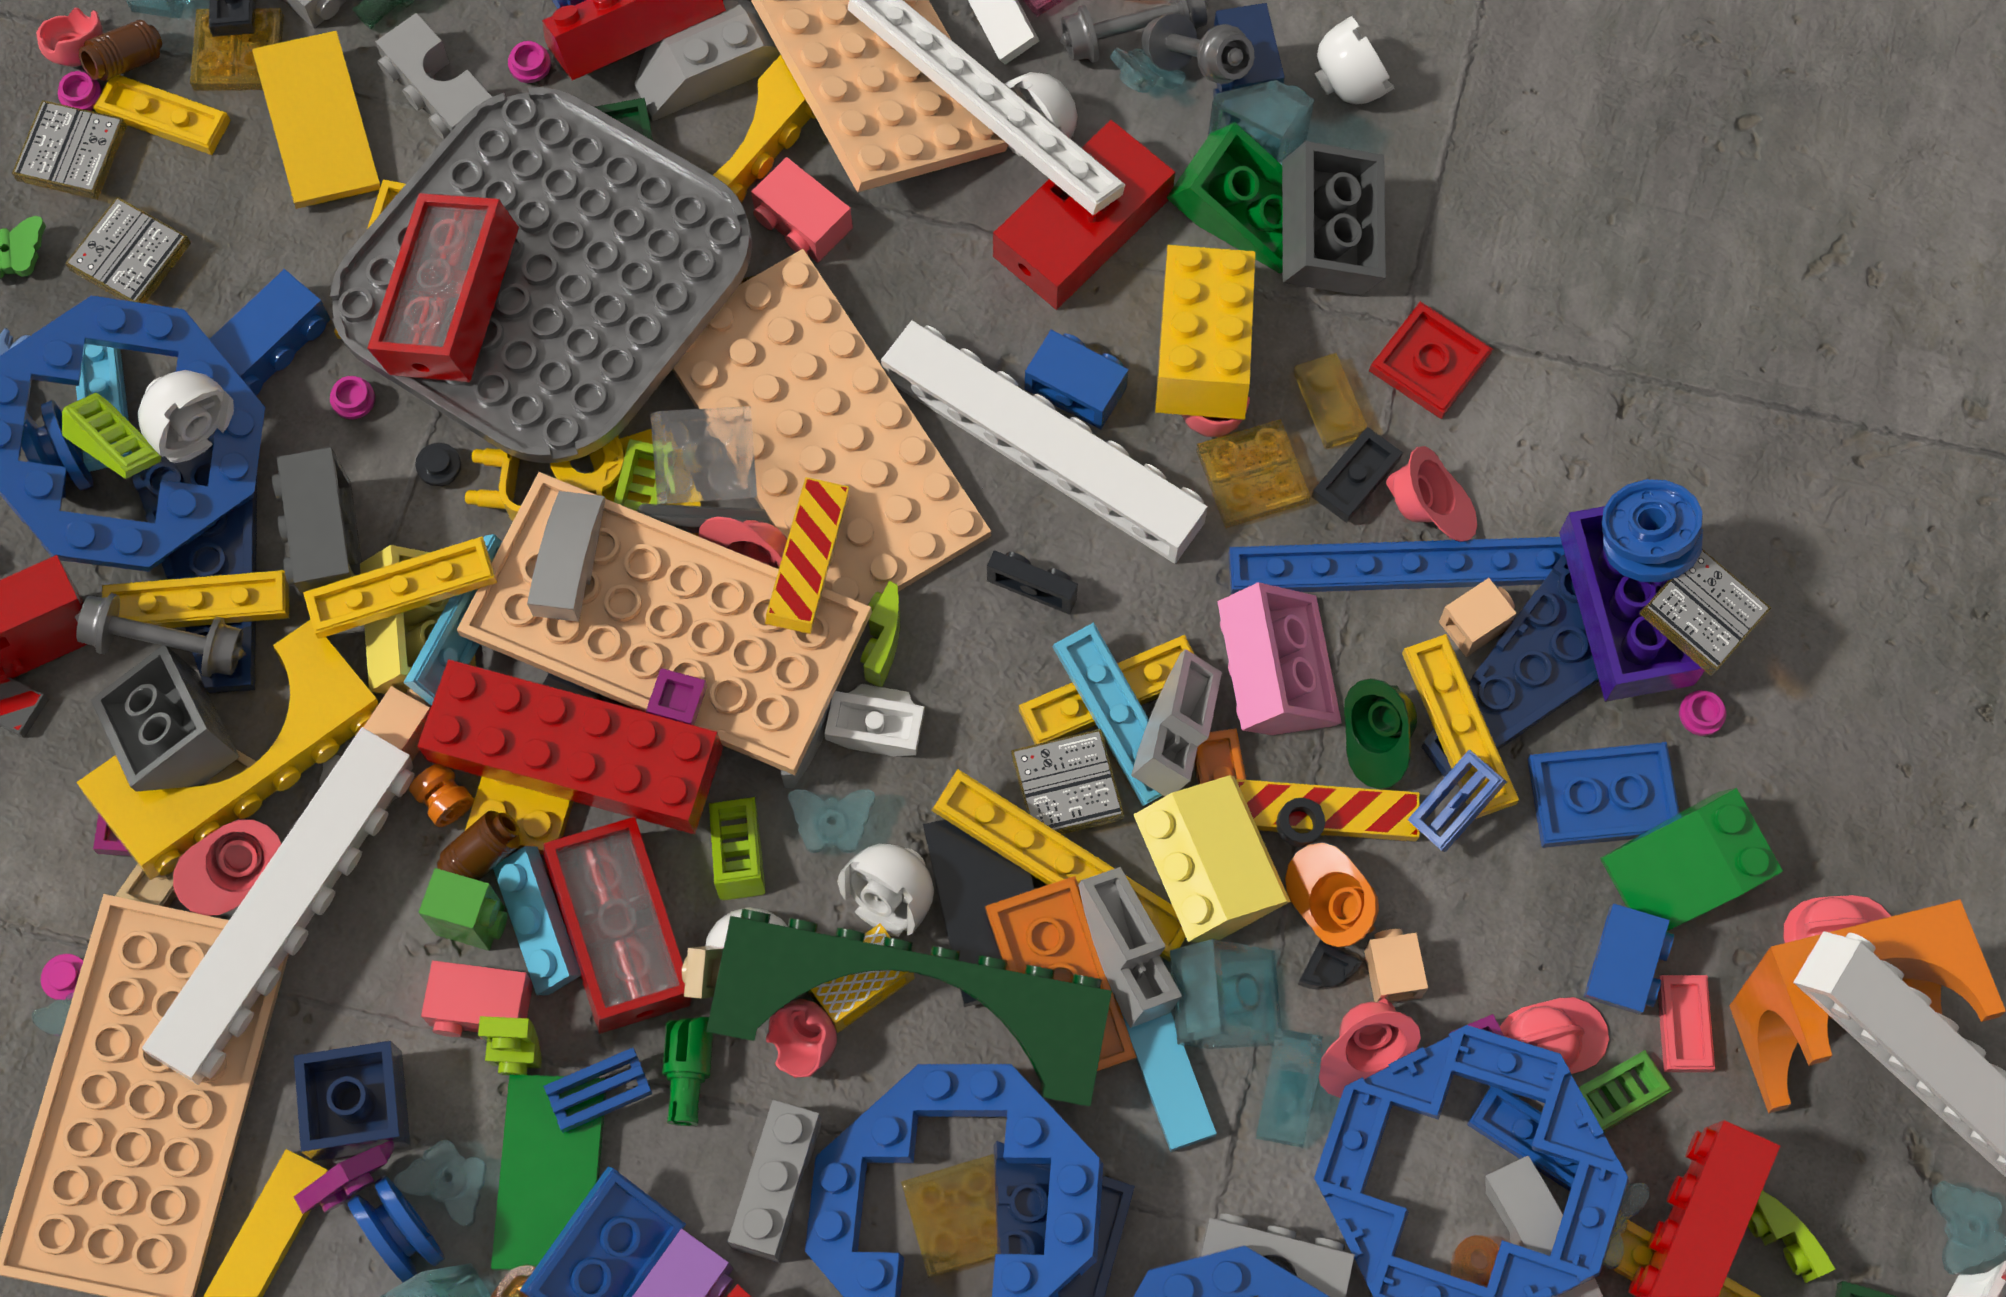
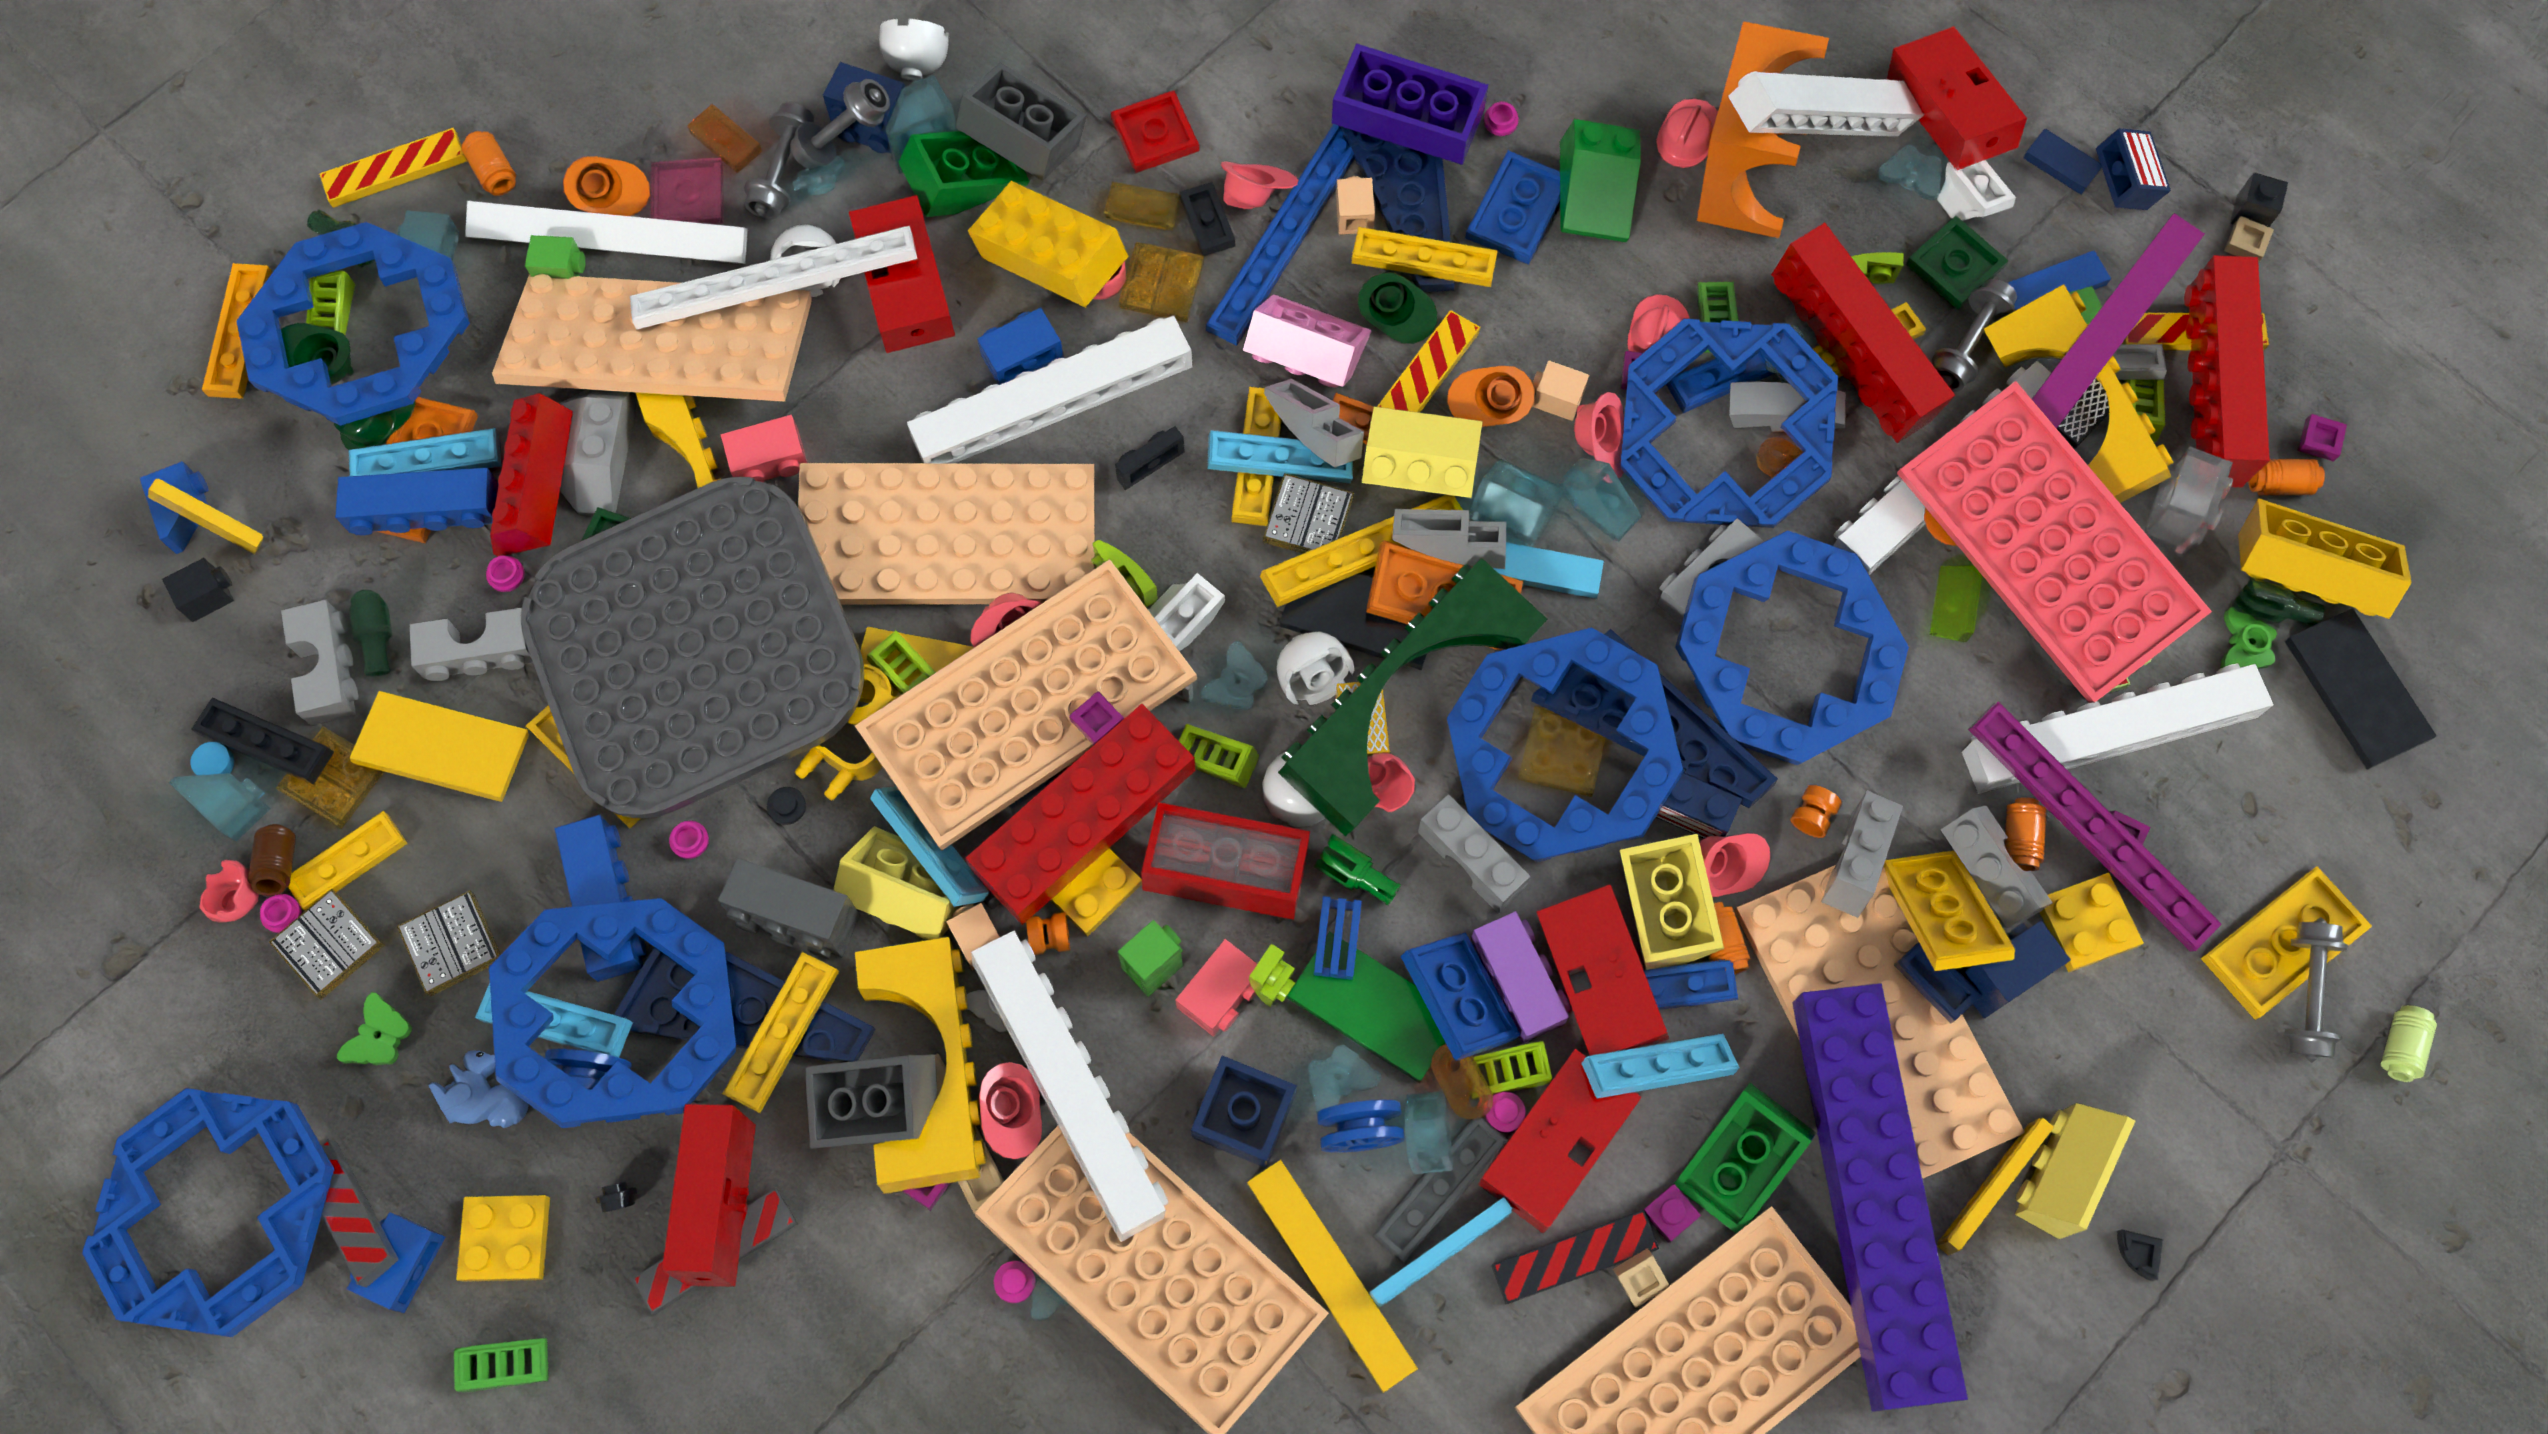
camera: 60 degrees left, 0 degrees up
(94, 413) = (604, 1019): lime slope -> none
(100, 622) = (760, 1102): flat silver piece -> none
(183, 413) = (633, 949): white cylinder -> none
(344, 1179) = (1300, 1151): magenta plate -> none
(400, 587) = (880, 868): yellow tile -> none
(443, 287) = (664, 710): brick -> none
(481, 846) = (1109, 924): reddish brown head -> none
(537, 920) = (1186, 915): medium azure plate -> none
(566, 556) = (939, 735): light grey slope -> none
(692, 517) = (959, 642): dark grey axle -> none
(701, 971) = (1303, 813): tan plate -> none
(703, 454) = (921, 606): clear brick -> none
(807, 555) = (1044, 579): yellow tile -> none
(1307, 806) = (1433, 375): black piece -> none
(1328, 968) = (1531, 432): black tile -> none
(1468, 815) = (1483, 314): tile -> none
(1628, 959) = (1638, 253): blue brick -> none
(1652, 530) = (1384, 52): blue wheel -> none
(1685, 1023) = (1694, 250): coral tile -> none
(1705, 612) = (1454, 59): light grey tile -> none

